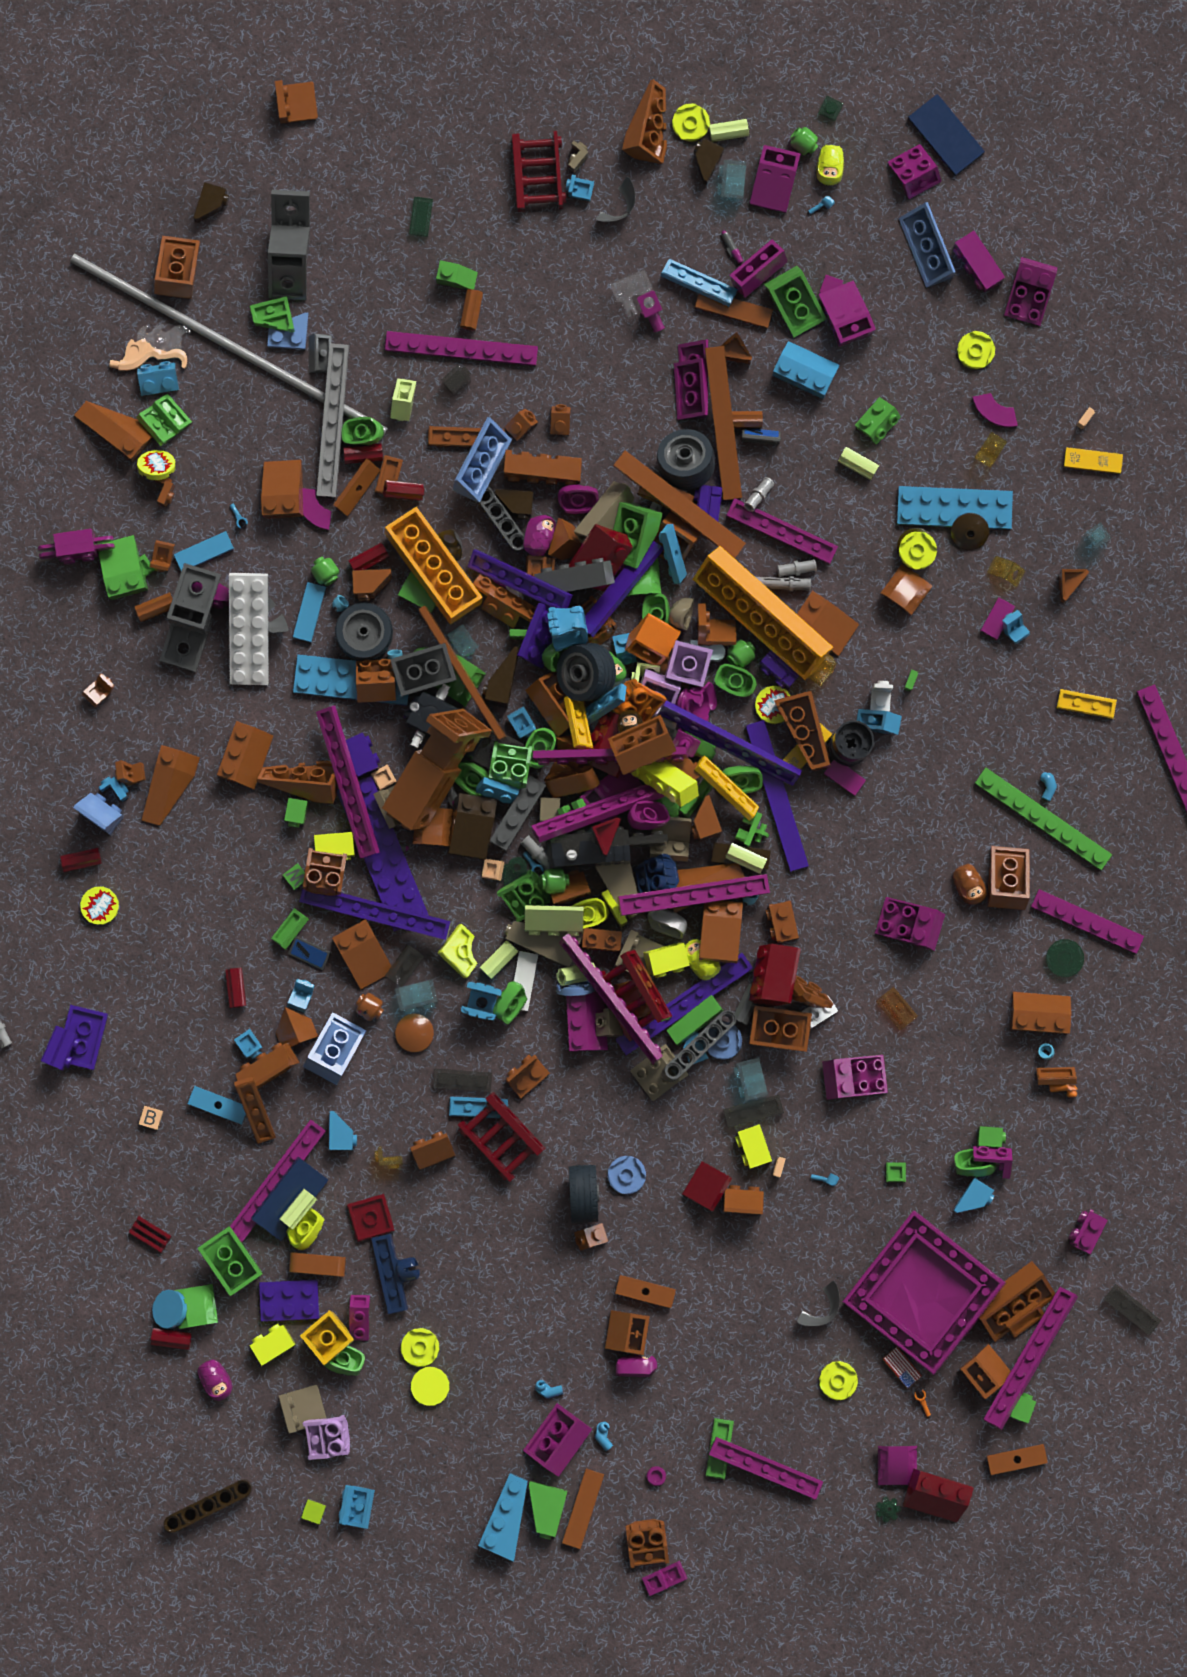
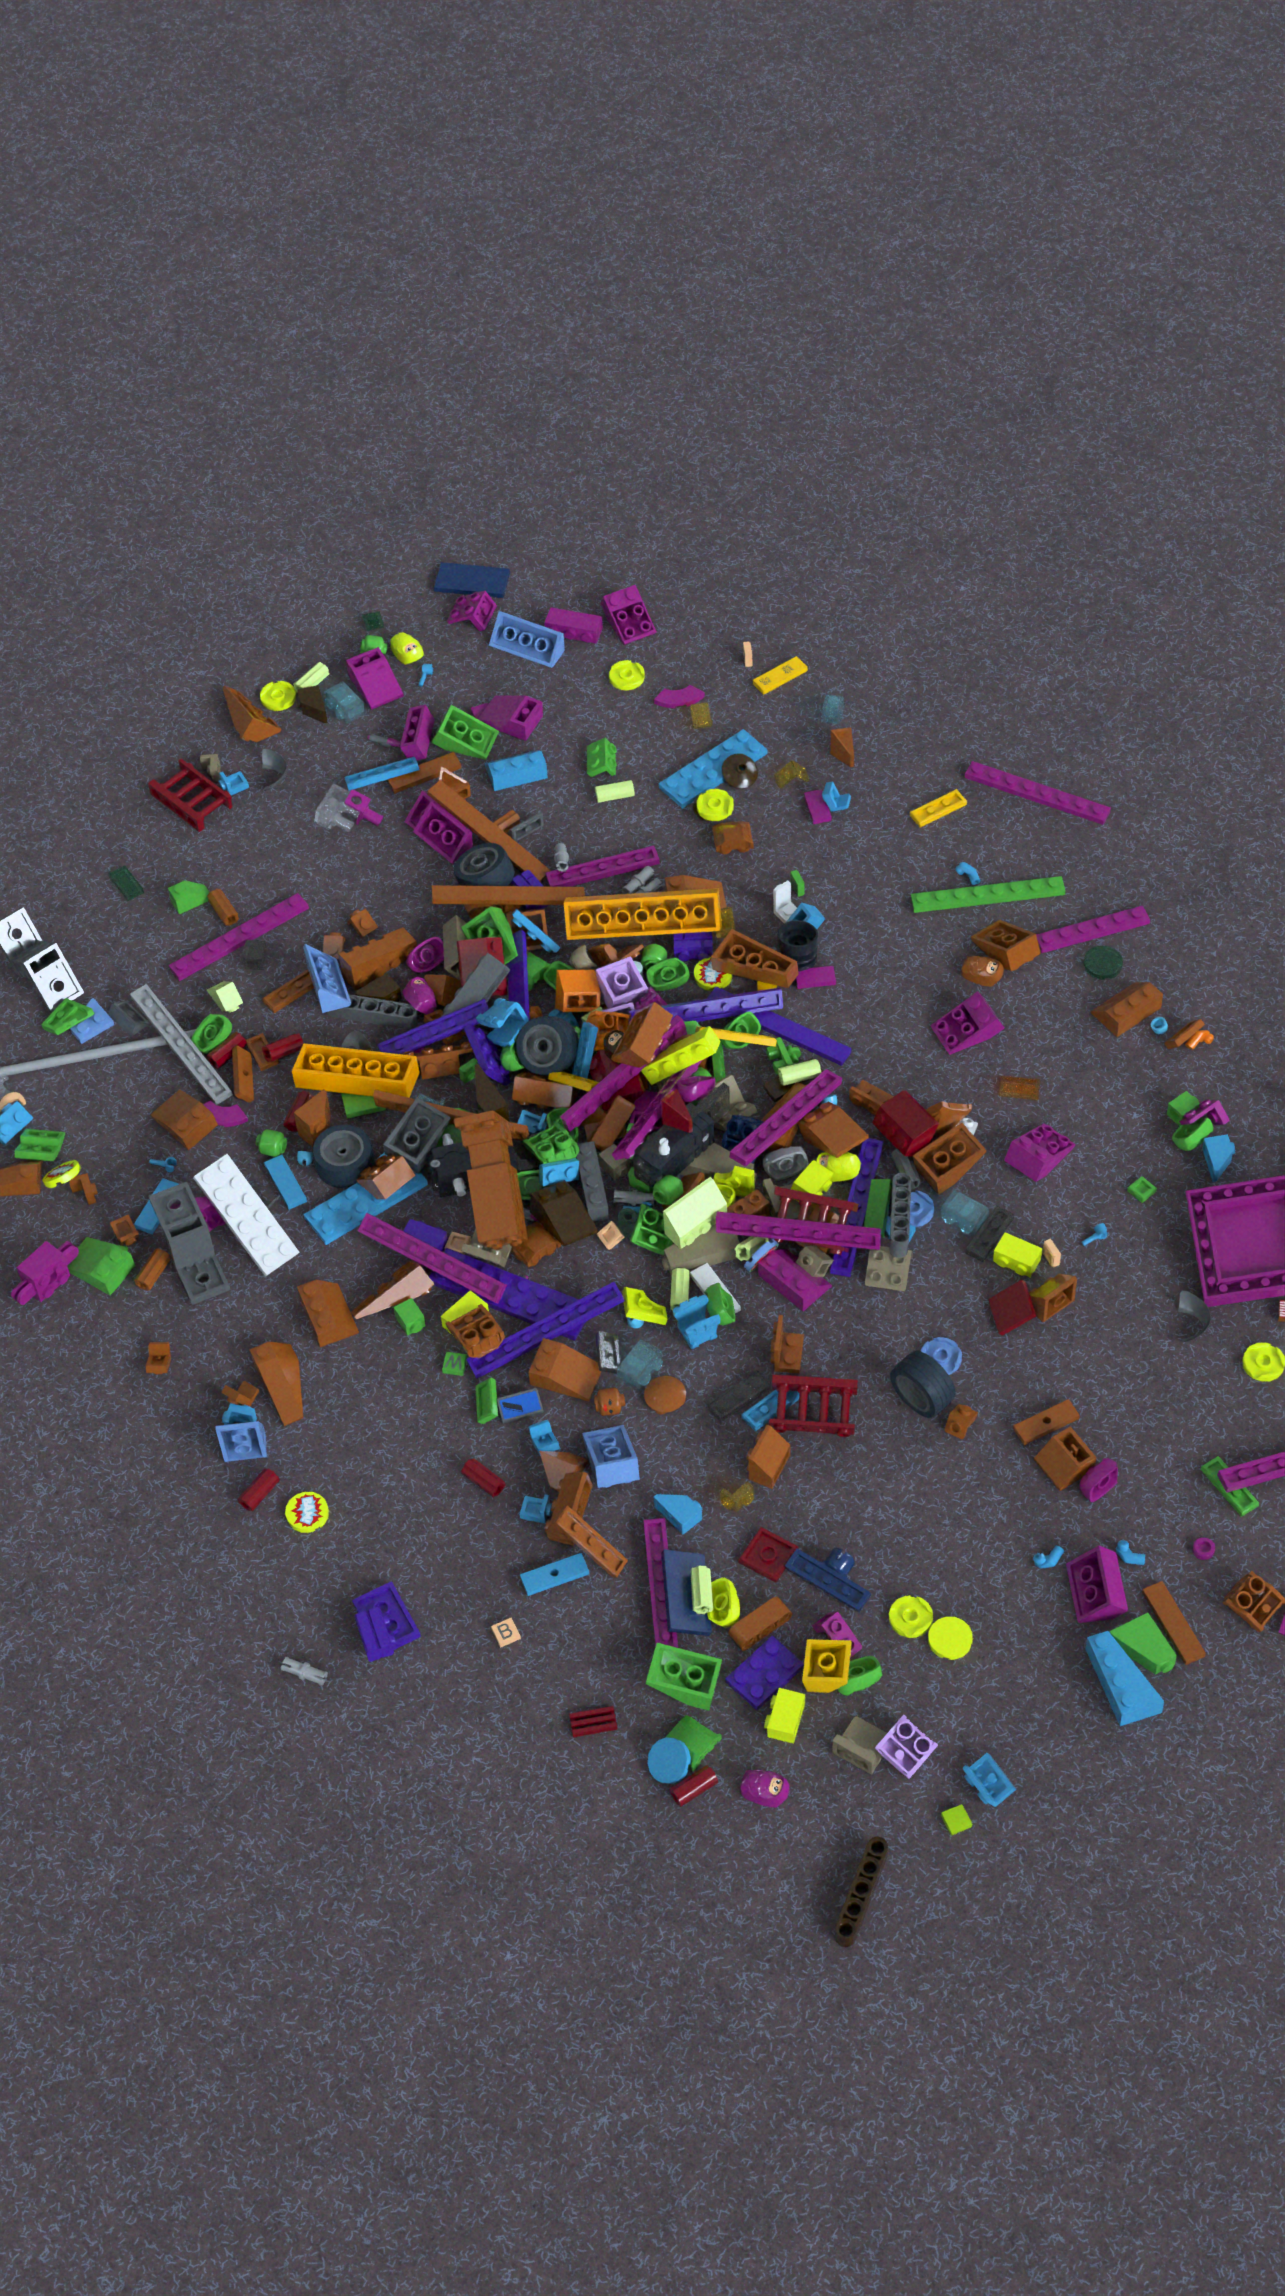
camera: 35 degrees left, 30 degrees down
(706, 822) = (746, 1071): dark orange slope -> none

